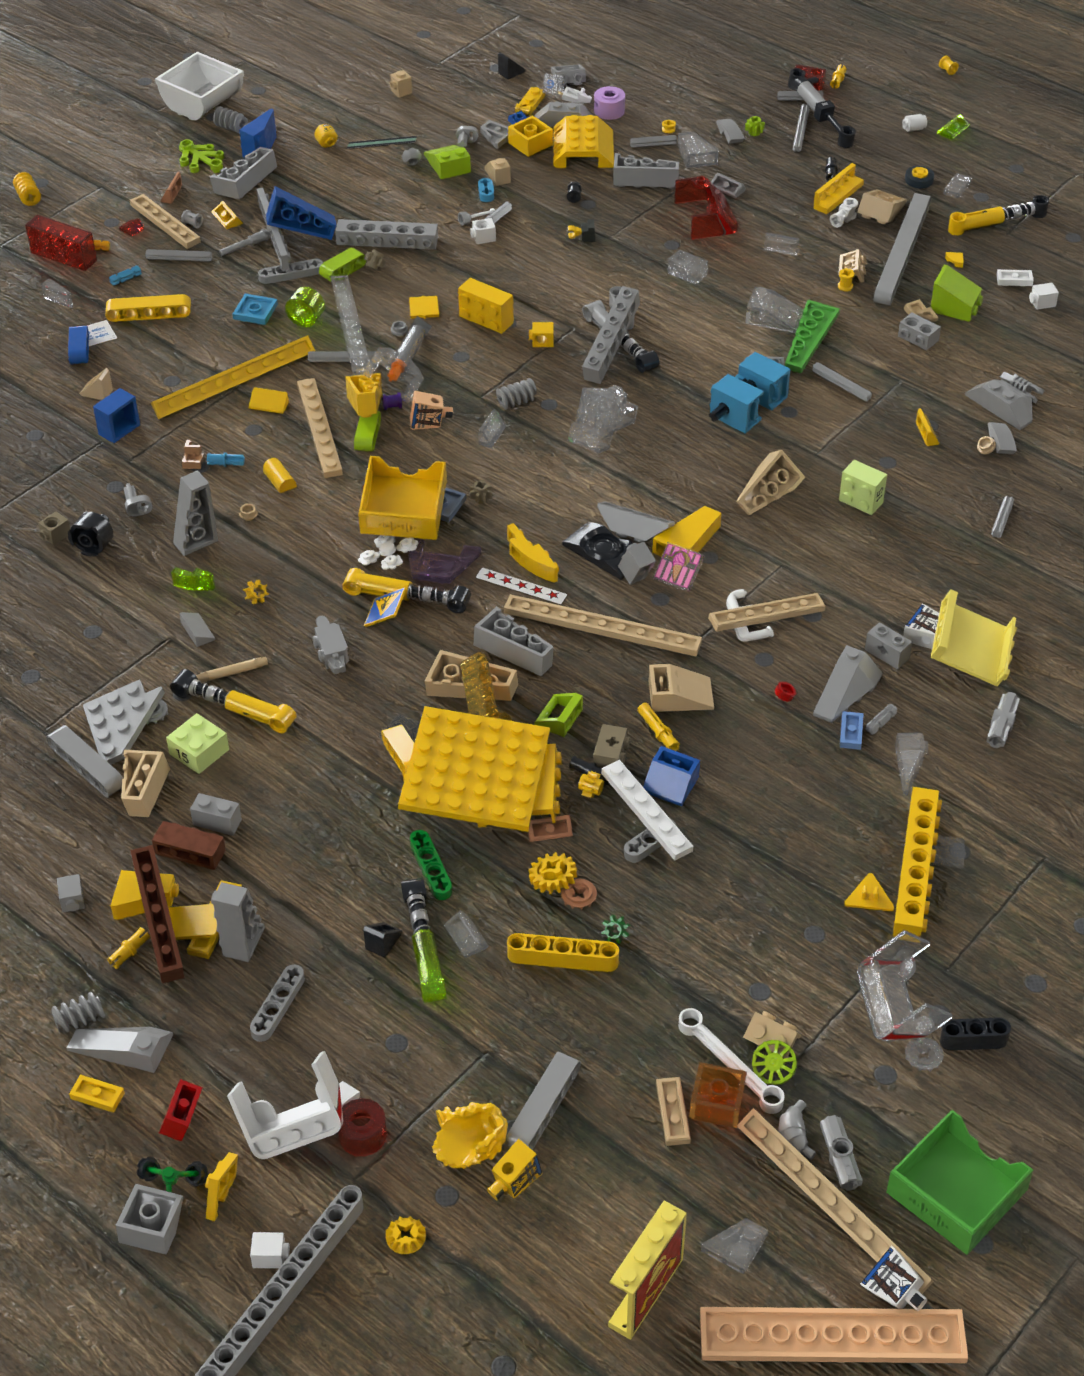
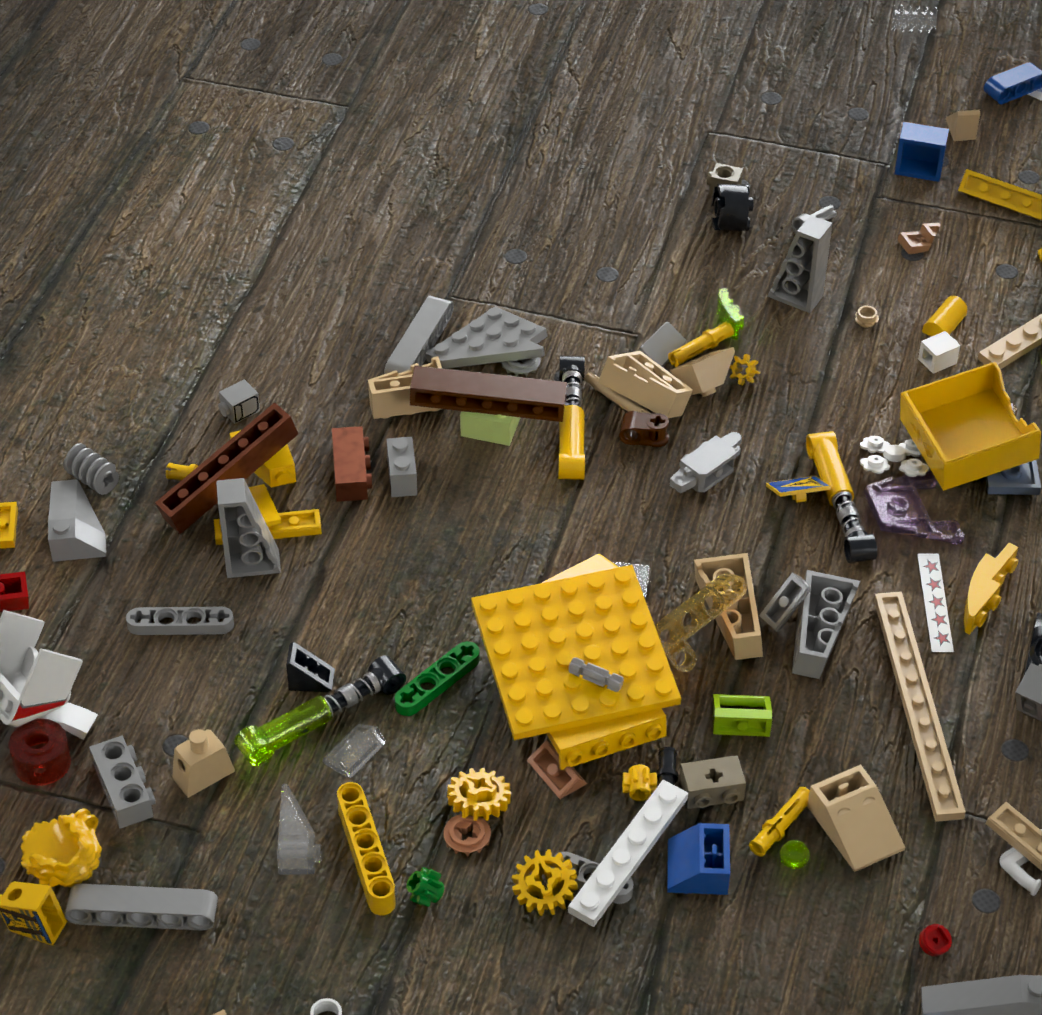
camera: 65 degrees right, 0 degrees up
(197, 729) = (488, 393): none -> reddish brown brick
(209, 599) = (709, 339): none -> yellow pin
(225, 459) = (934, 265): dark azure axle -> none
(238, 645) = (645, 383): none -> tan wedge
(240, 612) = (705, 371): none -> tan slope
(273, 665) = (642, 428): none -> reddish brown piece
(311, 490) = (939, 352): none -> white brick
(429, 1090) = (122, 781): none -> light grey brick
(434, 1017) = (200, 762): none -> tan torso
(490, 646) = (785, 602): none -> light grey slope
(512, 759) = (596, 674): none -> light grey axle
(530, 990) = (296, 838): none -> clear slope
(656, 866) = (531, 885): none -> yellow gear
(686, 731) = (794, 854): none -> clear neon green plate

